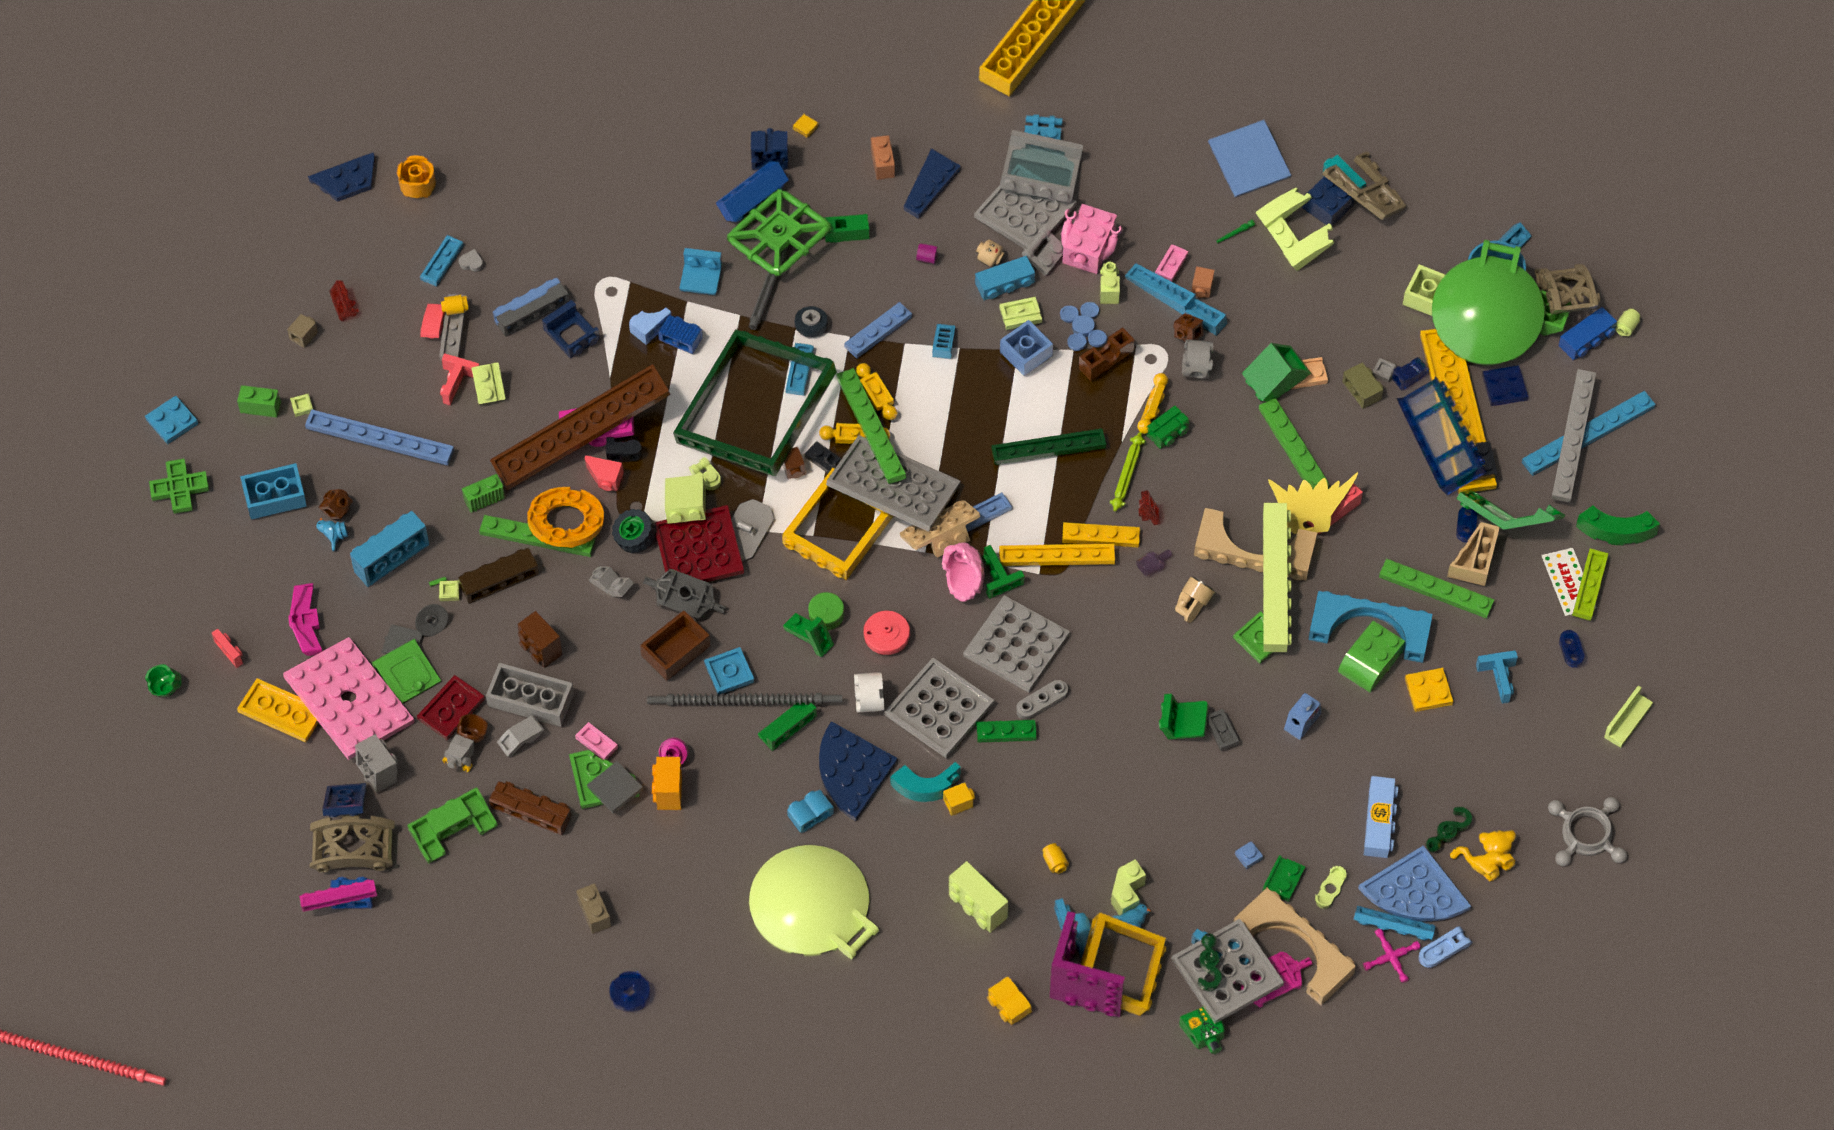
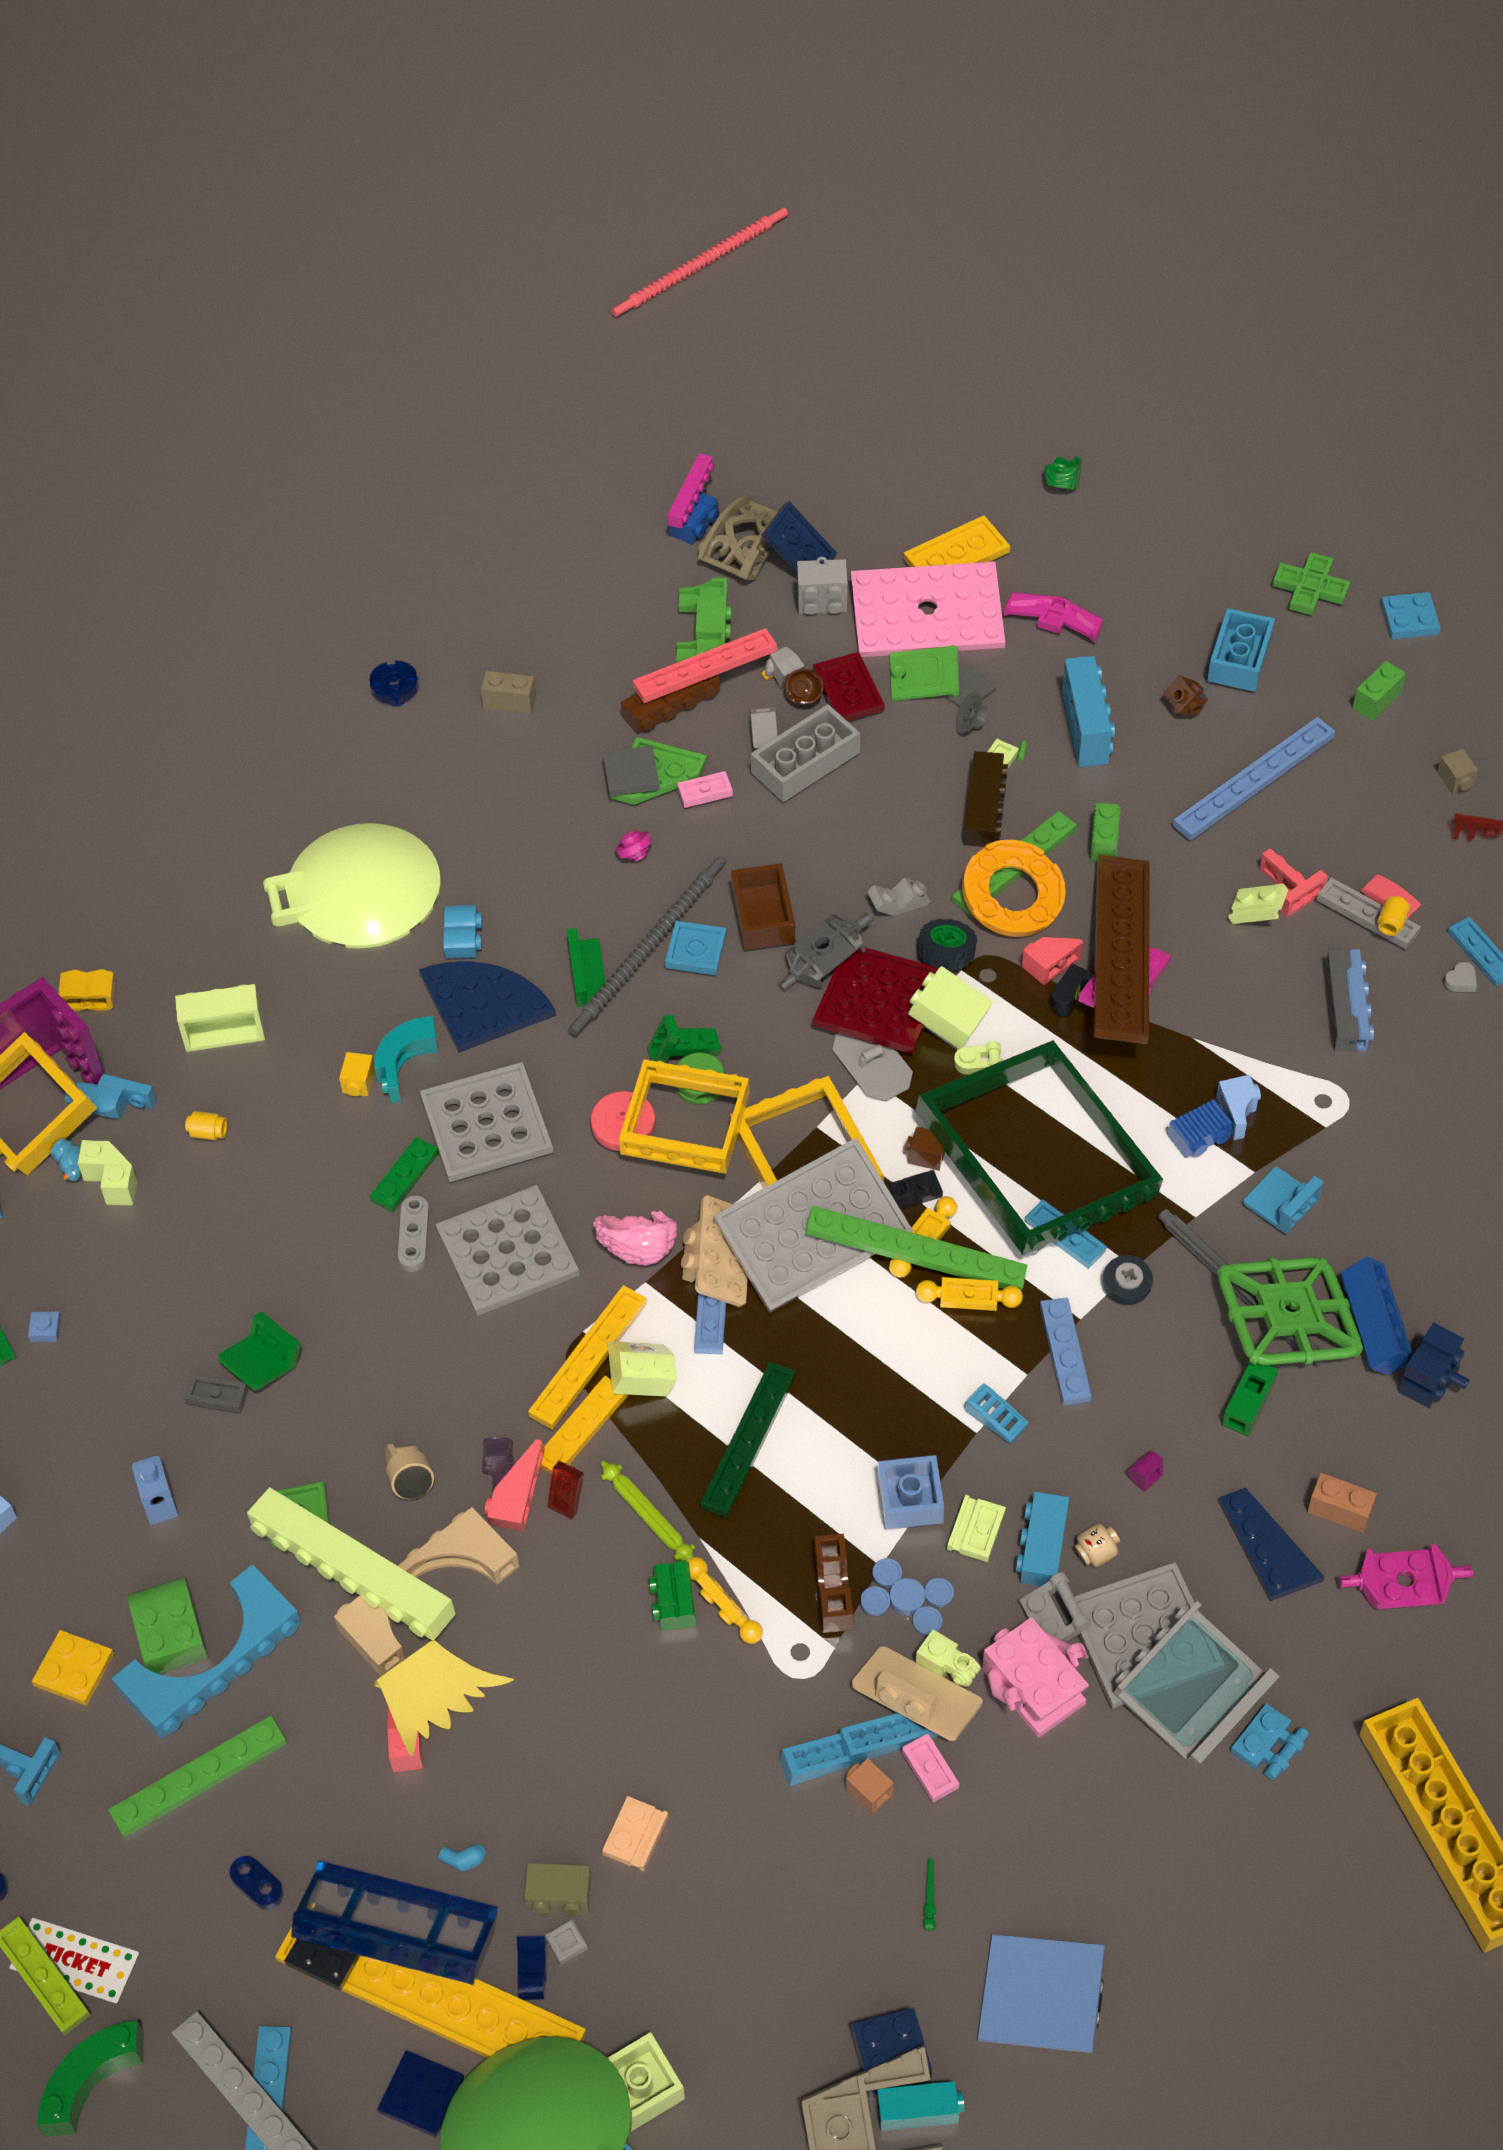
camera: 125 degrees right, 5 degrees down
(224, 643) = (1067, 539): coral plate -> none
(301, 405) = (1352, 733): yellowish green tile -> none
(332, 531) = (1152, 684): dark azure animal -> none
(500, 787) = (704, 665): none -> coral plate
(539, 639) = (866, 787): reddish brown brick -> none
(562, 320) = (1305, 1019): dark blue window -> none
(667, 783) = (594, 814): light orange brick -> none
(805, 125) = (1460, 1447): yellow tile -> none
(859, 556) = (675, 1151): none -> yellow window
(869, 692) = (553, 1052): white brick -> none
(900, 102) = (1426, 1568): none -> dark pink plate
(1001, 582) = (610, 1278): green bracket -> none
(1045, 519) = (641, 1368): none -> yellowish green slope
(1137, 287) = (917, 1693): none -> tan bracket
(1166, 535) = (515, 1492): none -> coral slope
(1188, 327) = (804, 1713): reddish brown brick -> none
(1197, 360) = (746, 1688): light grey brick -> none
(1275, 371) = (652, 1779): slope -> none
(1291, 442) = (536, 1740): bright green plate -> none
(1297, 252) = (833, 1948): yellowish green wedge -> none
(1376, 434) = (464, 1859): none -> dark azure arm
(1473, 500) = (212, 1923): green windscreen -> none
(1476, 556) = (191, 1848): tan wedge -> none

